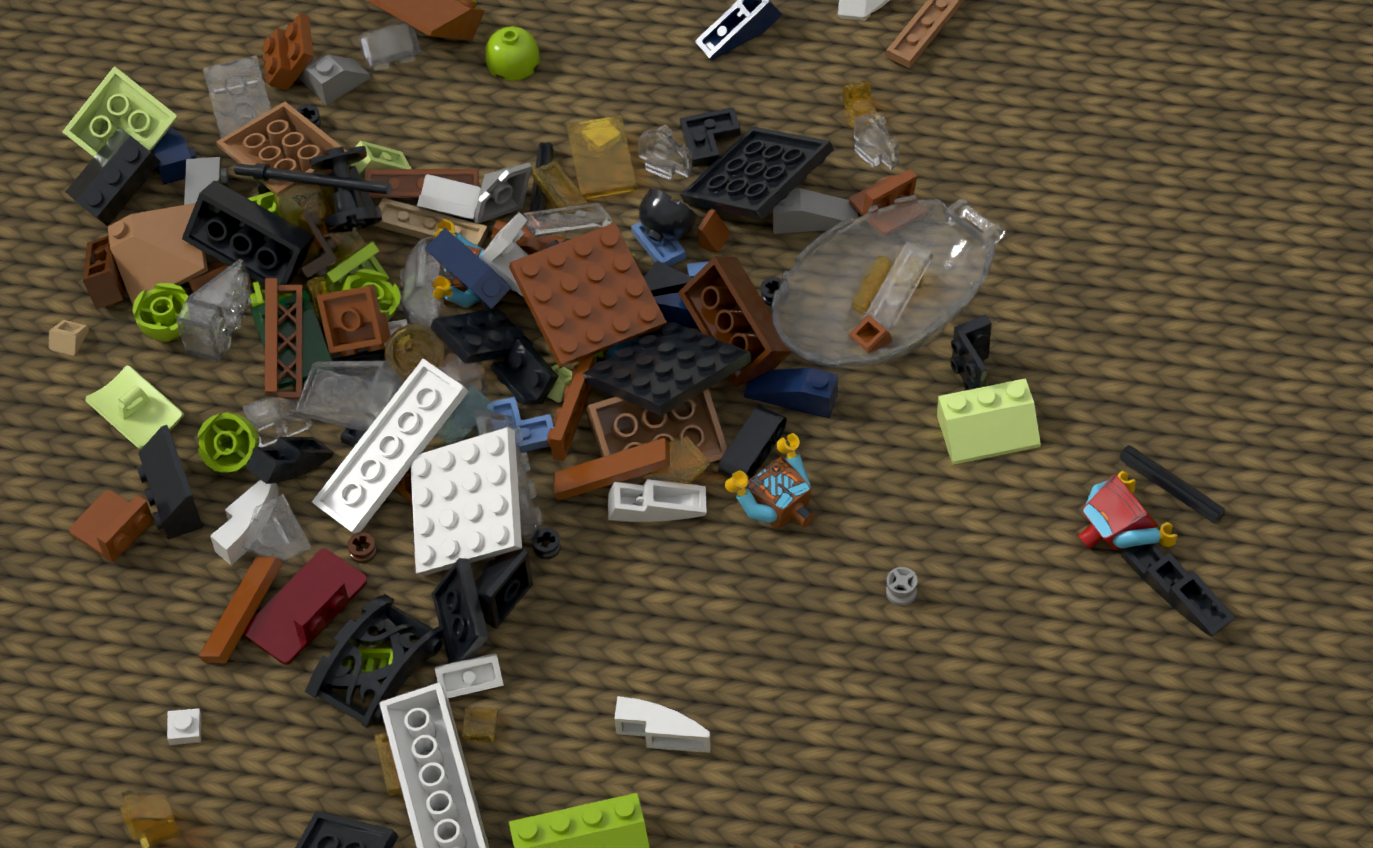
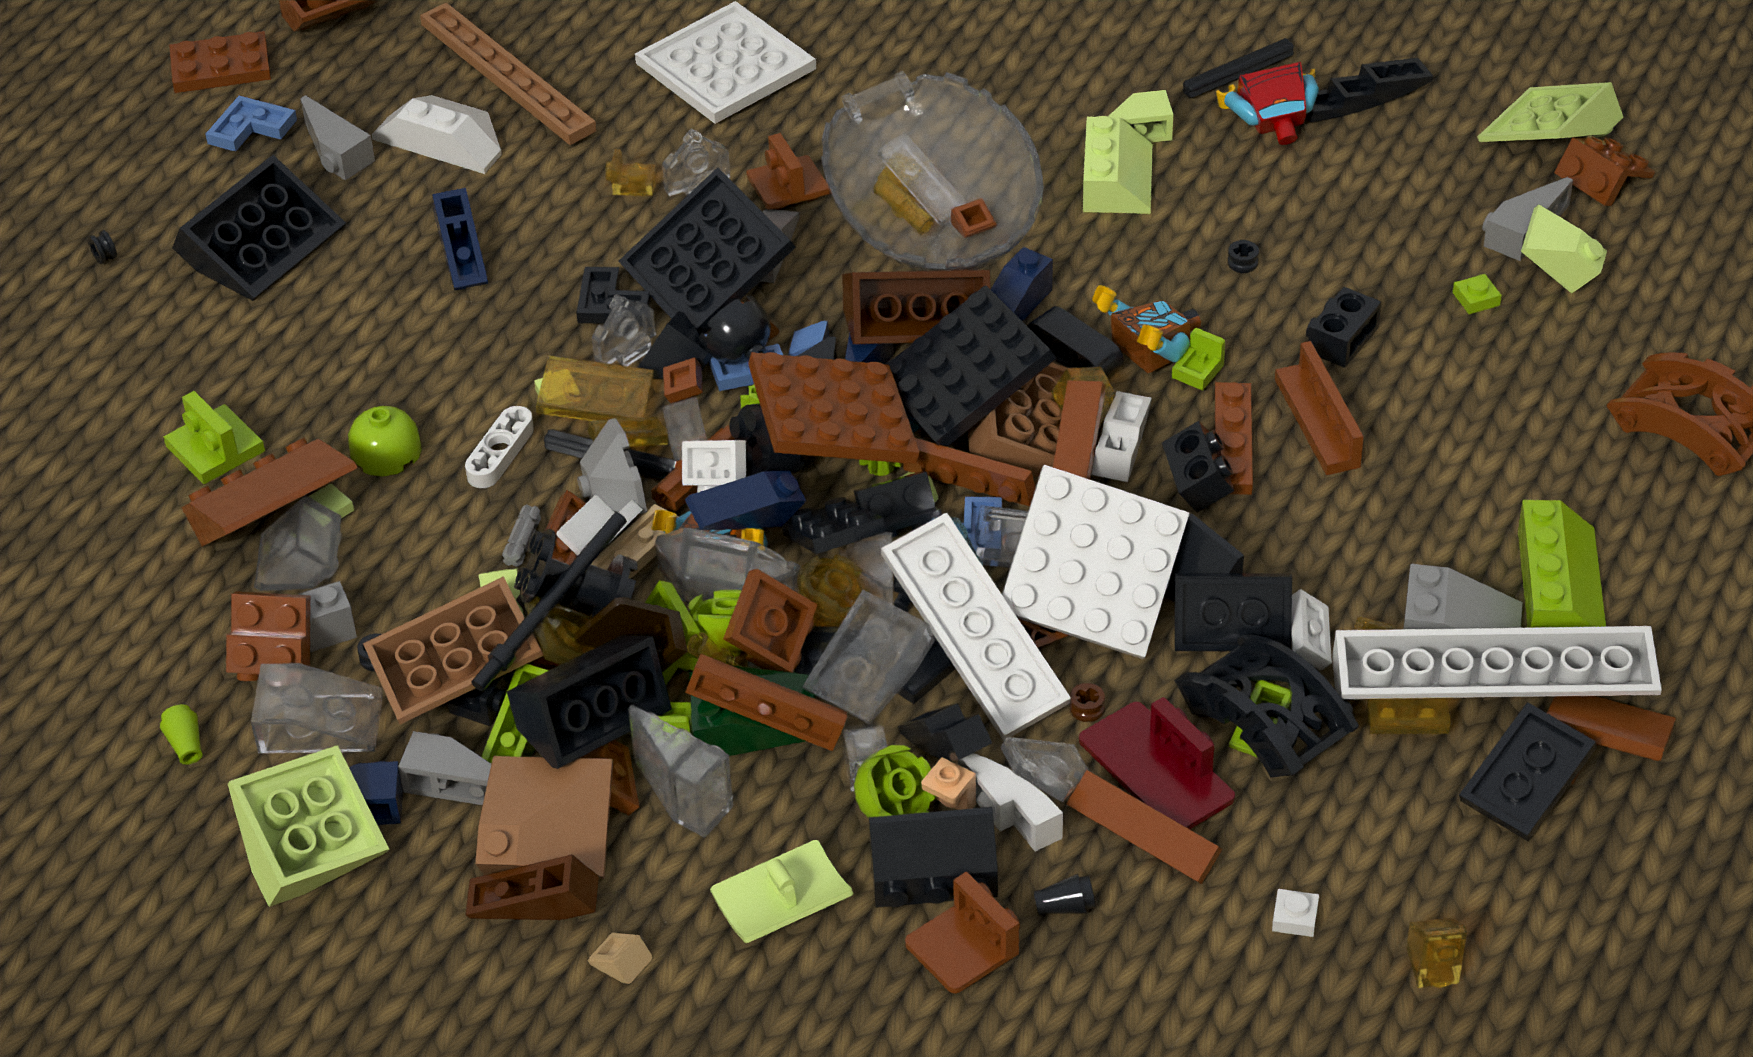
camera: 75 degrees left, 10 degrees down
(113, 176) = (386, 846): black slope -> none
(158, 311) = (652, 824): lime cylinder -> none
(165, 579) = (1066, 896): none -> black cone
(205, 42) = (182, 732): none -> lime cone
(236, 474) = (951, 785): none -> light nougat bracket
(441, 47) = (334, 500): none -> yellowish green tile
(443, 161) = (521, 535): none -> light grey axle
(509, 126) = (499, 460): none -> white beam
(510, 775) = (1452, 600): none -> light grey slope
(624, 558) = (1199, 466): none -> black brick
(627, 205) = (682, 380): none -> dark orange plate
(660, 726) = (1423, 484): white slope -> none
(664, 181) = (675, 344): none -> black slope
(683, 581) = (1234, 428): none -> dark orange plate
(727, 636) = (1321, 412): none -> dark orange fence
(758, 536) = (1201, 360): none -> lime bracket
(835, 637) = (1344, 326): none -> black brick
(902, 578) = (1301, 272): light grey wheel -> none
(916, 534) = (1243, 264): none -> black bush
(926, 727) = (1477, 294): none -> lime plate
(969, 350) = (1057, 149): black bracket -> none
(993, 775) = (1562, 249): none -> yellowish green slope
(1026, 122) = (725, 62): none -> white plate
(1031, 744) = (1510, 221): none -> light grey slope
(1063, 425) = (1148, 114): none -> yellowish green slope
(1139, 799) = (1600, 167): none -> dark orange bracket
(1185, 743) = (1557, 113): none -> yellowish green slope

